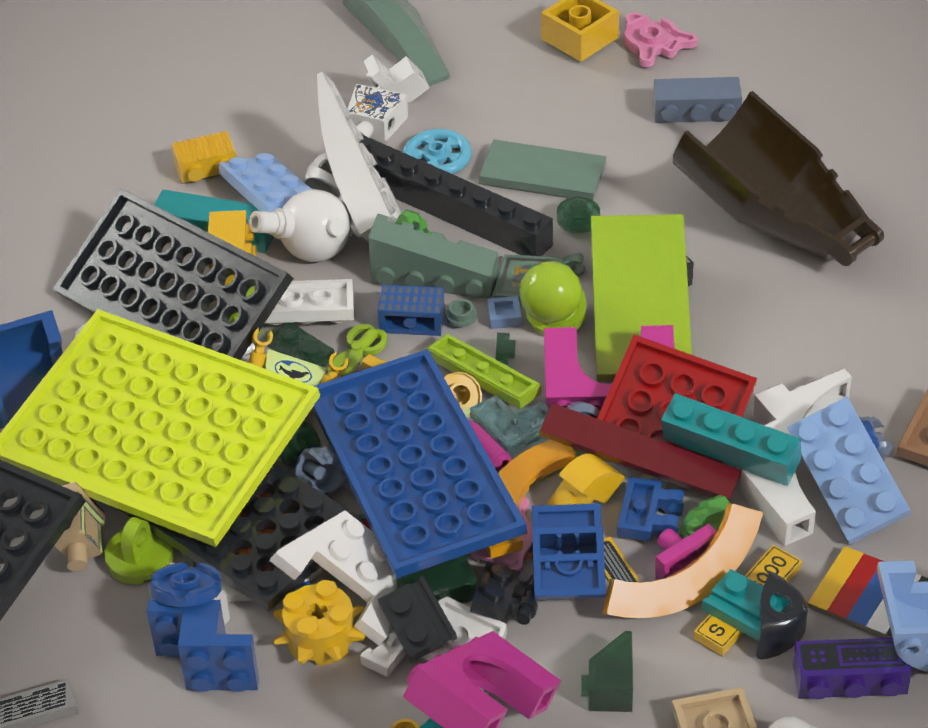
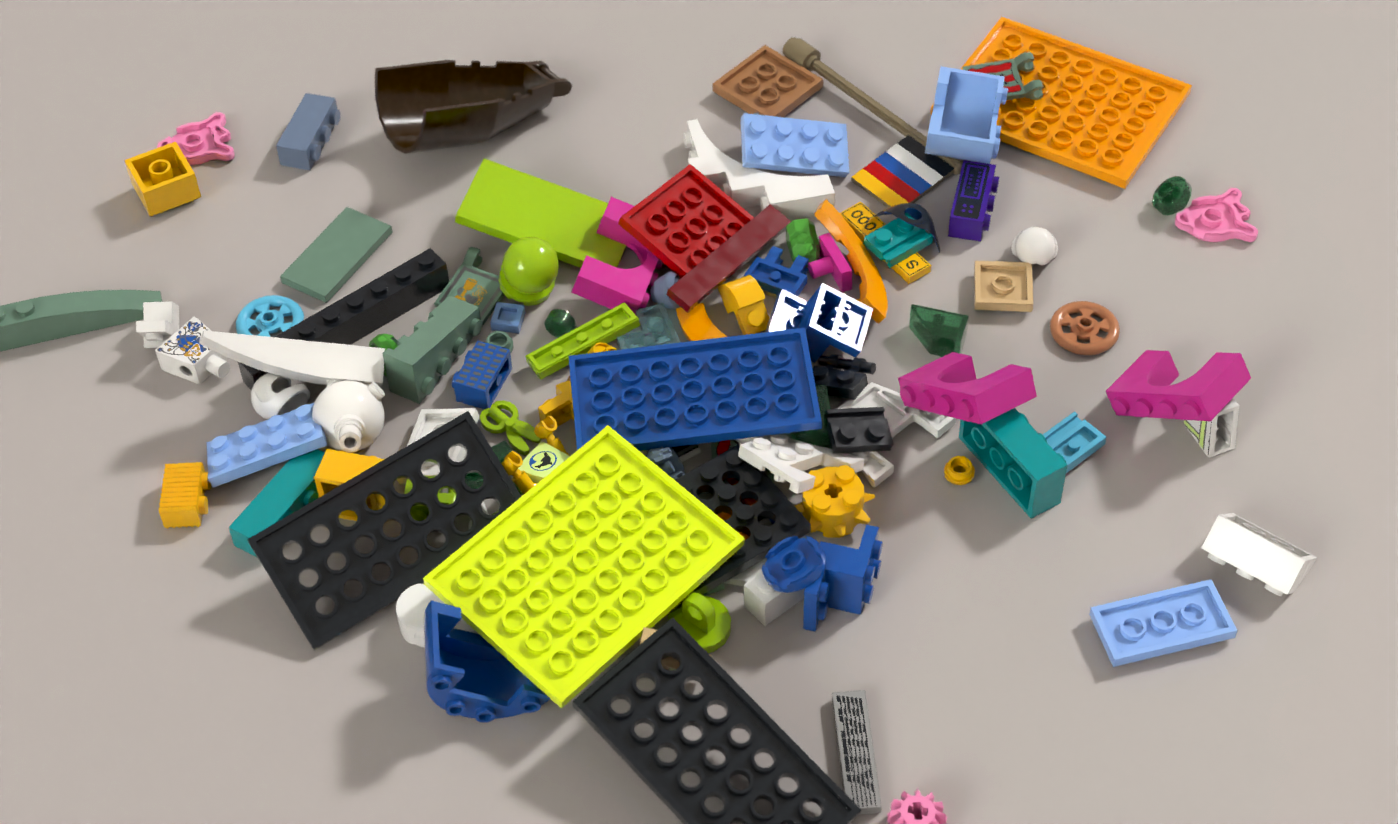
camera: 75 degrees left, 5 degrees up
(575, 214) = (413, 240): clear green plate -> none
(731, 439) = (752, 193): teal brick -> none

